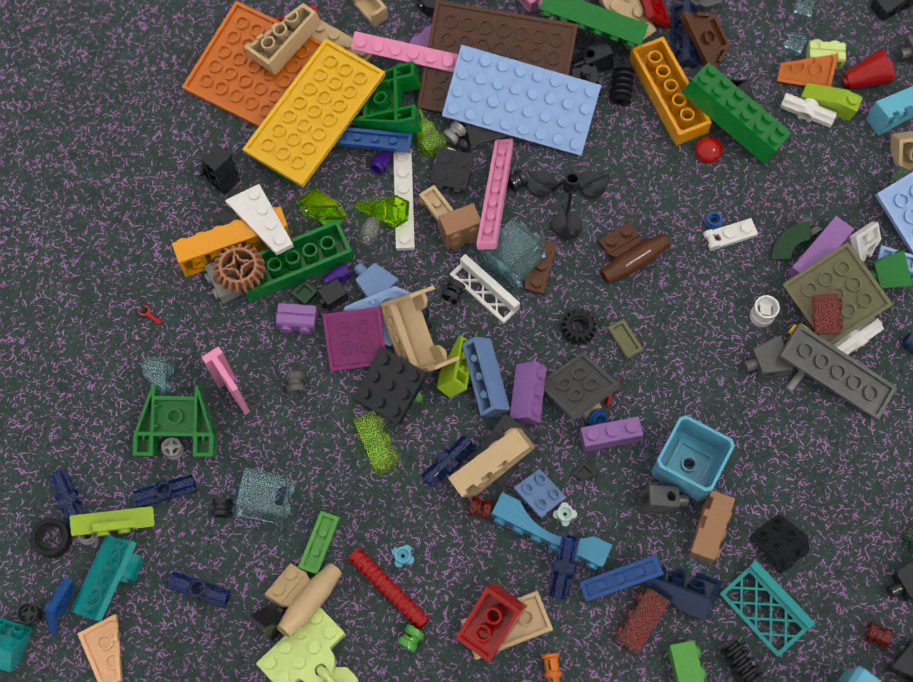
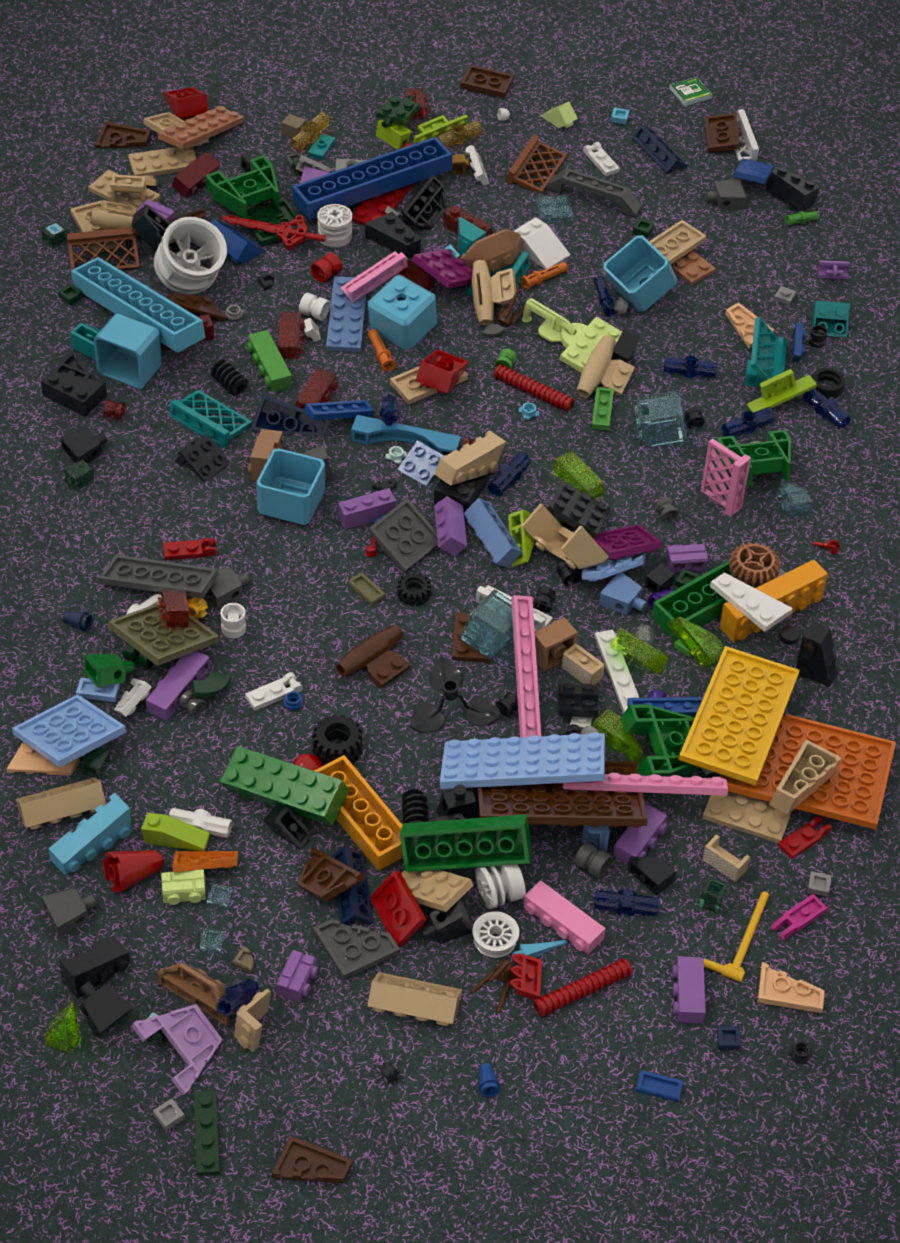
camera: 165 degrees right, 20 degrees down
(680, 176) = (337, 728): none -> black tyre
(802, 419) = (190, 549): none -> red hinge

